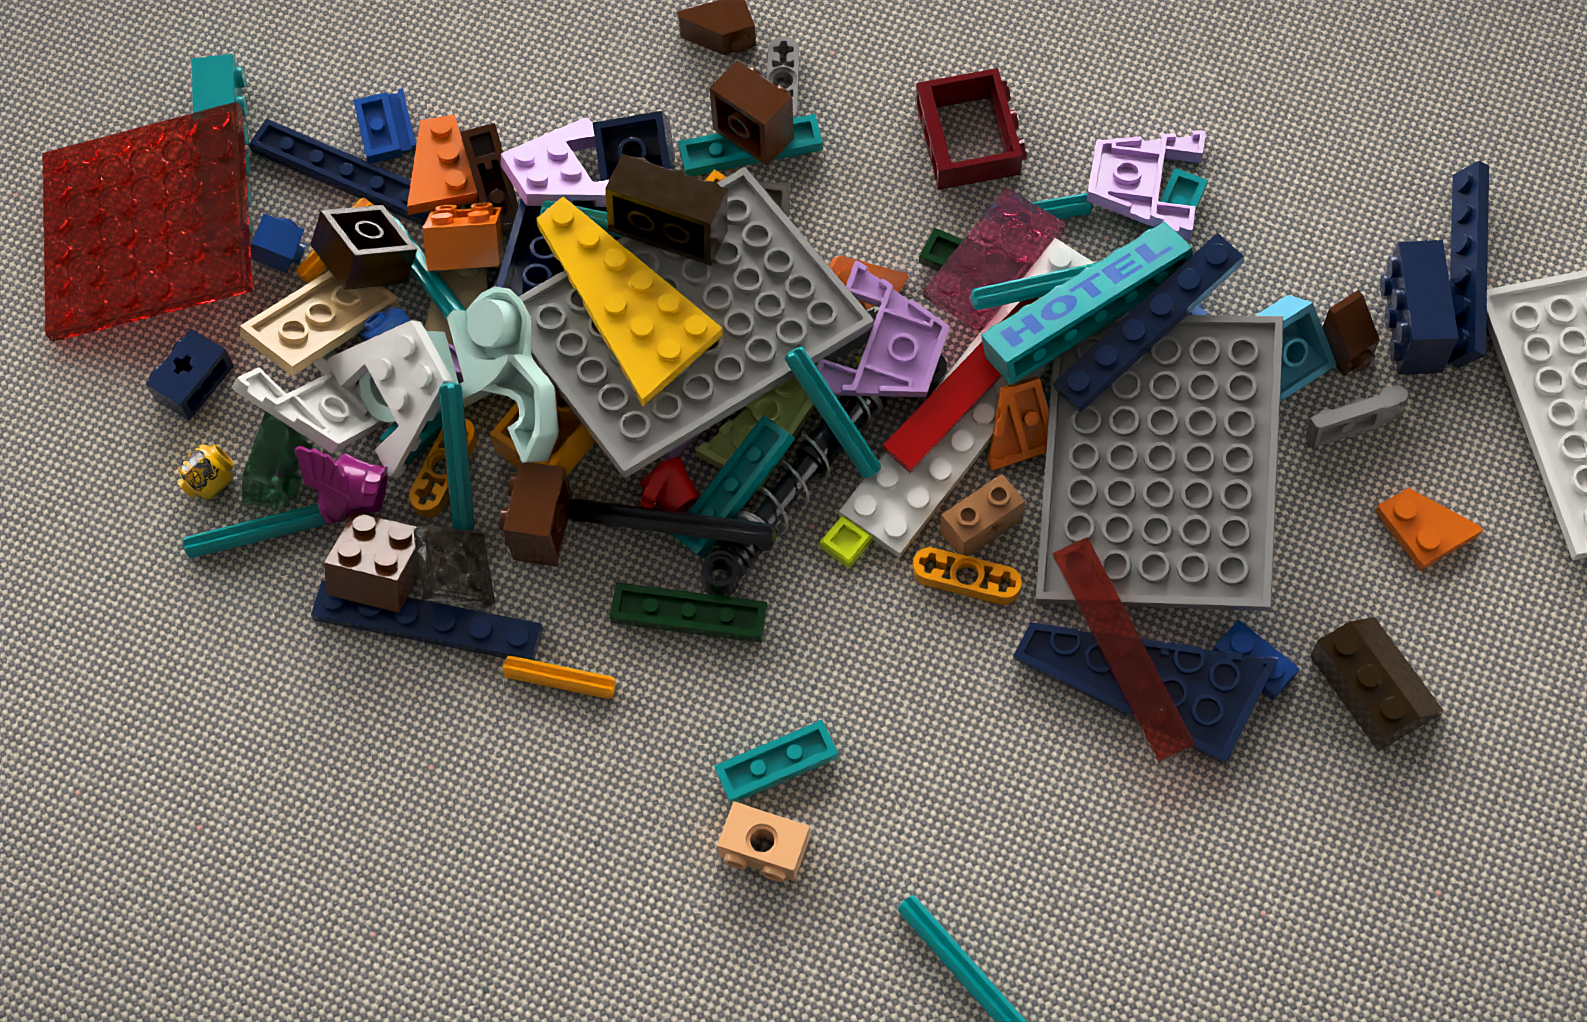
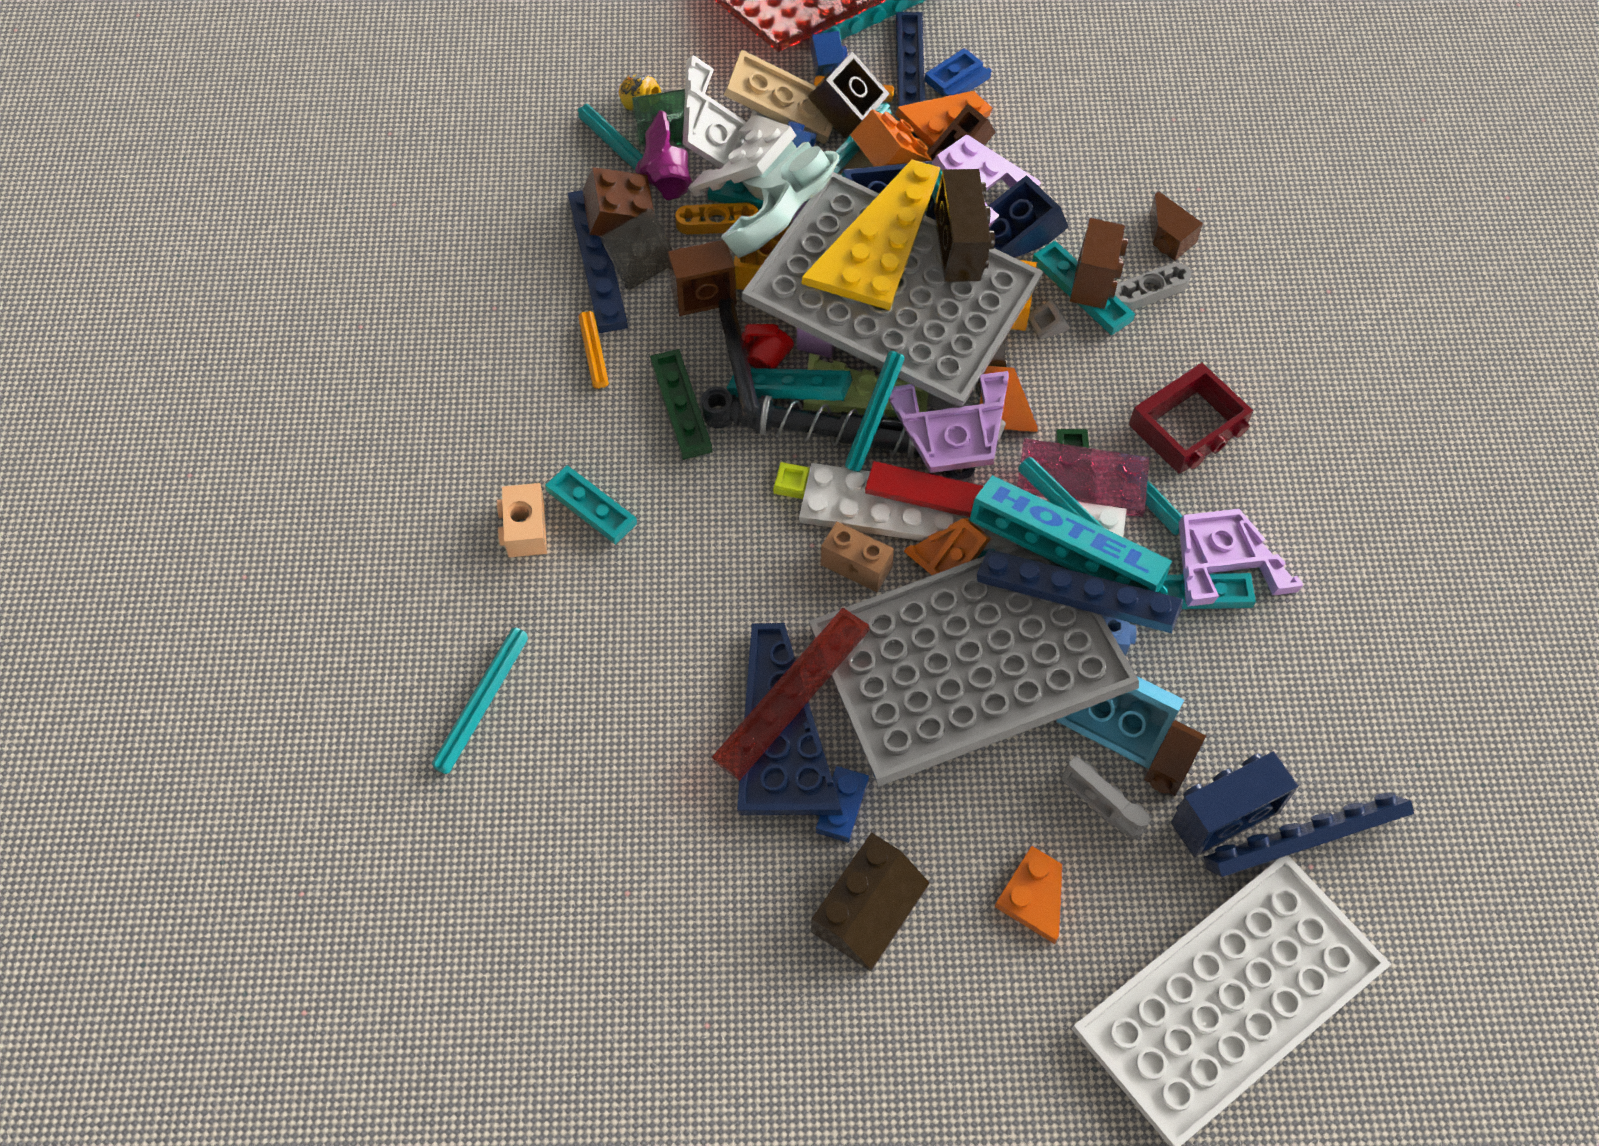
camera: 60 degrees right, 5 degrees down
(189, 374) = (712, 49): dark blue brick -> none
(457, 456) = (718, 207): teal axle -> none
(996, 572) = (802, 582): light orange beam -> none

